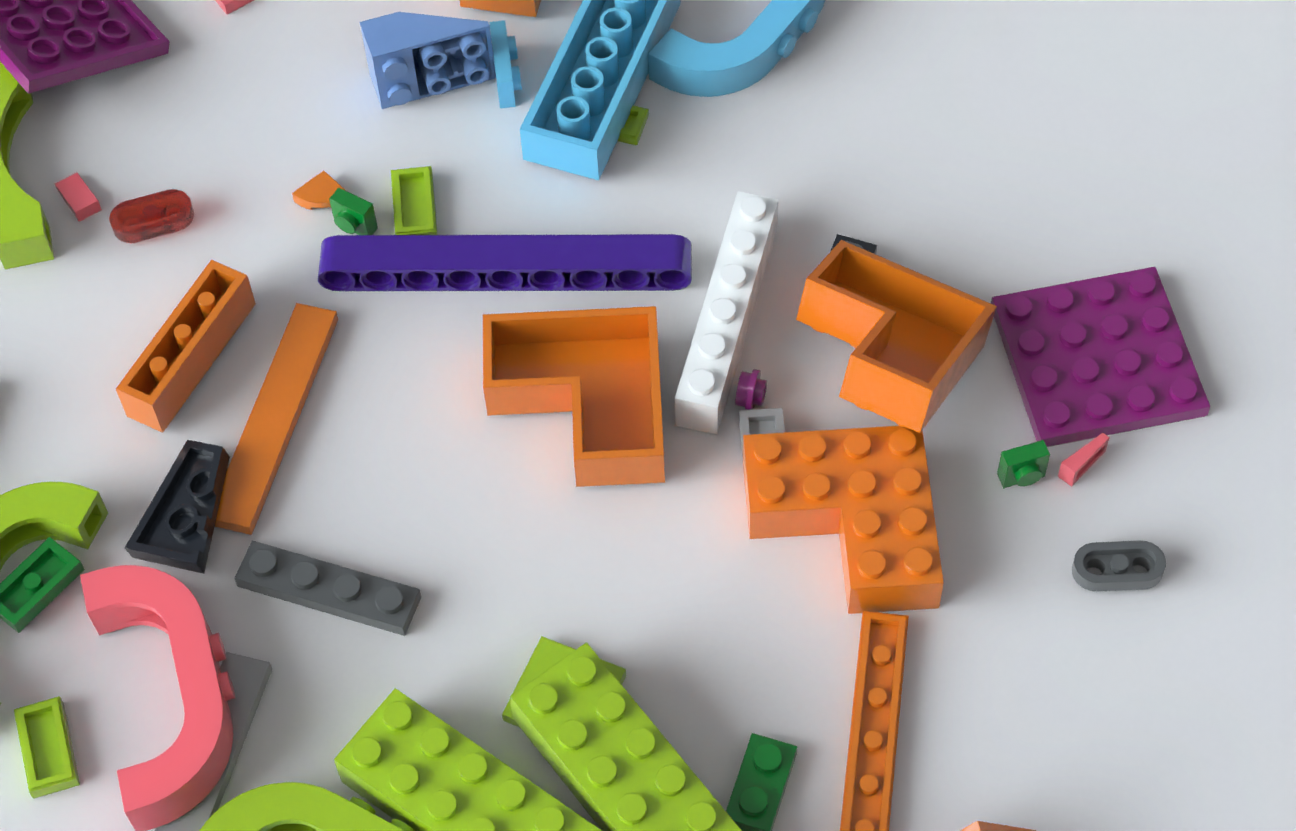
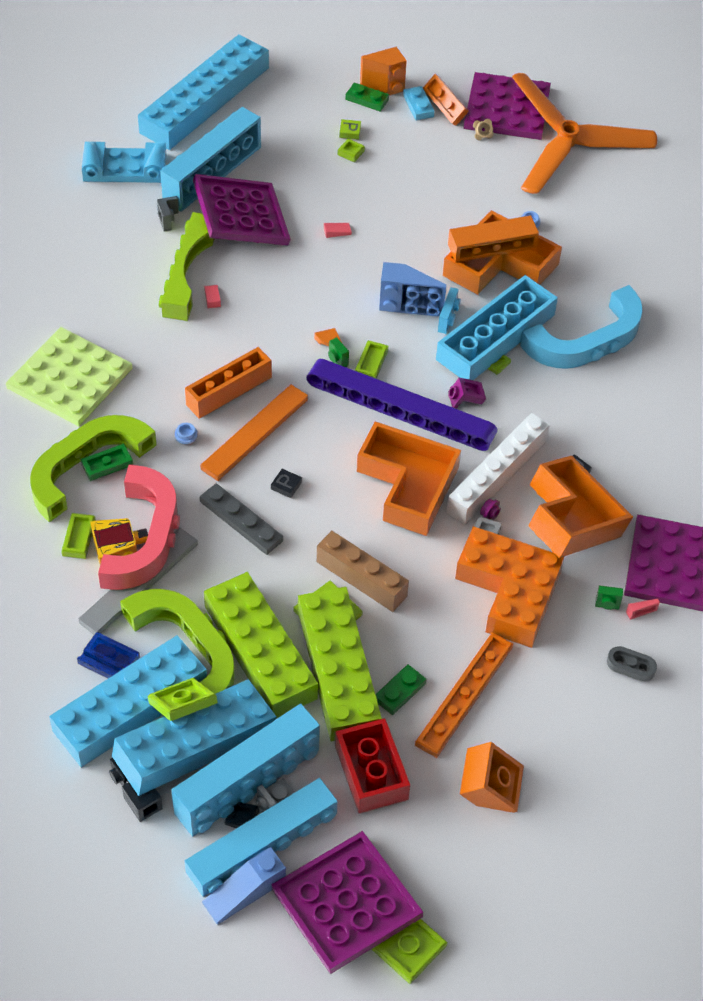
camera: 20 degrees right, 5 degrees down
(123, 726) = (116, 537): none -> torso
(150, 469) = (186, 433): none -> light blue plate
(151, 216) = (242, 318): clear red plate -> none
(184, 510) = (191, 456): black wing -> none
(376, 488) = (286, 483): none -> black tile
(590, 596) = (362, 571): none -> medium nougat brick
(604, 195) = (467, 391): none -> magenta bracket

